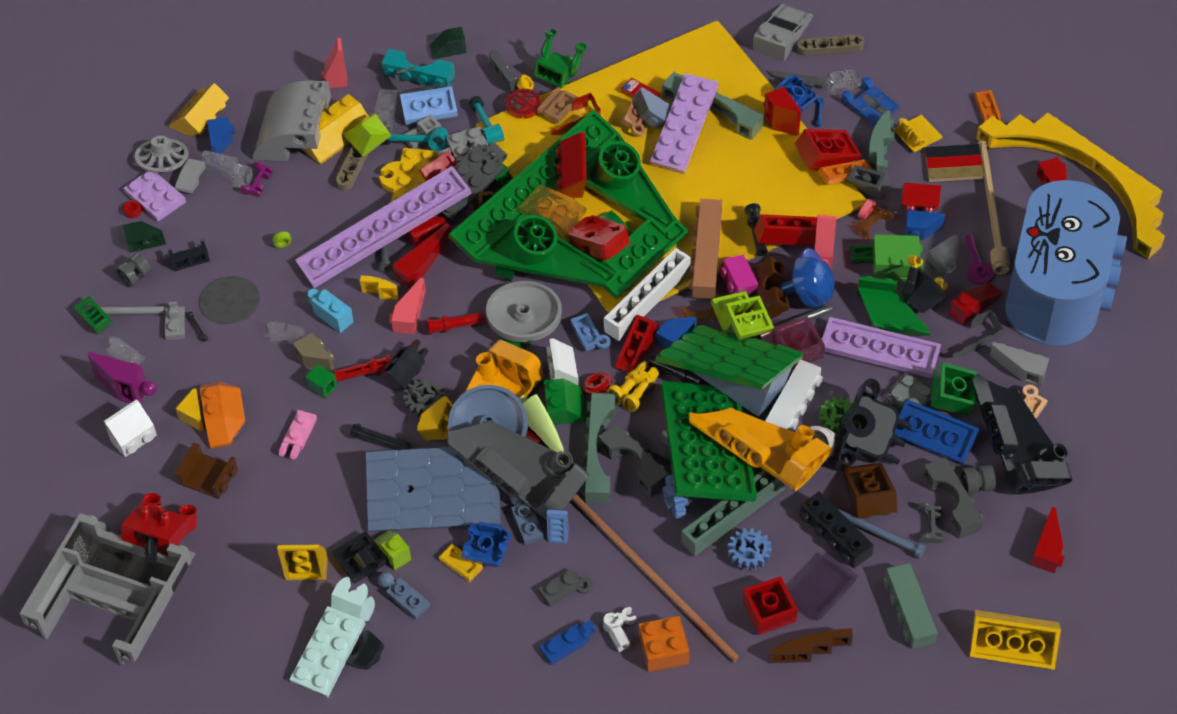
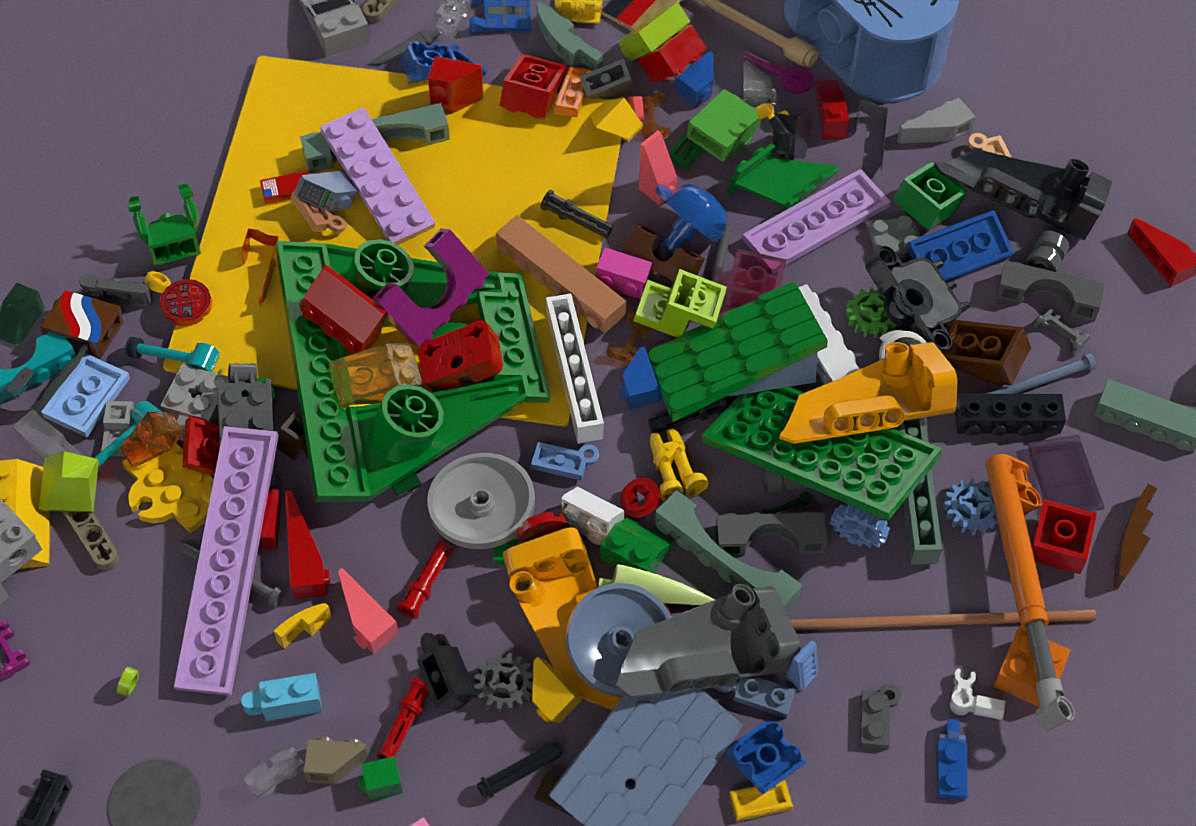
camera: 55 degrees left, 5 degrees up
(424, 146) = (151, 437): none -> clear orange slope
(468, 72) = (84, 321): none -> panel
(529, 344) = (540, 526): none -> red tile
(557, 105) = (226, 271): medium nougat plate -> none
(603, 203) = (463, 276): none -> magenta arch
(637, 343) = (622, 427): red slope -> none
(777, 554) = (1012, 501): none -> orange piece
(786, 230) = (612, 185): red brick -> none
(843, 204) = (617, 118): none -> yellow slope
(927, 175) = (653, 31): none -> lime brick

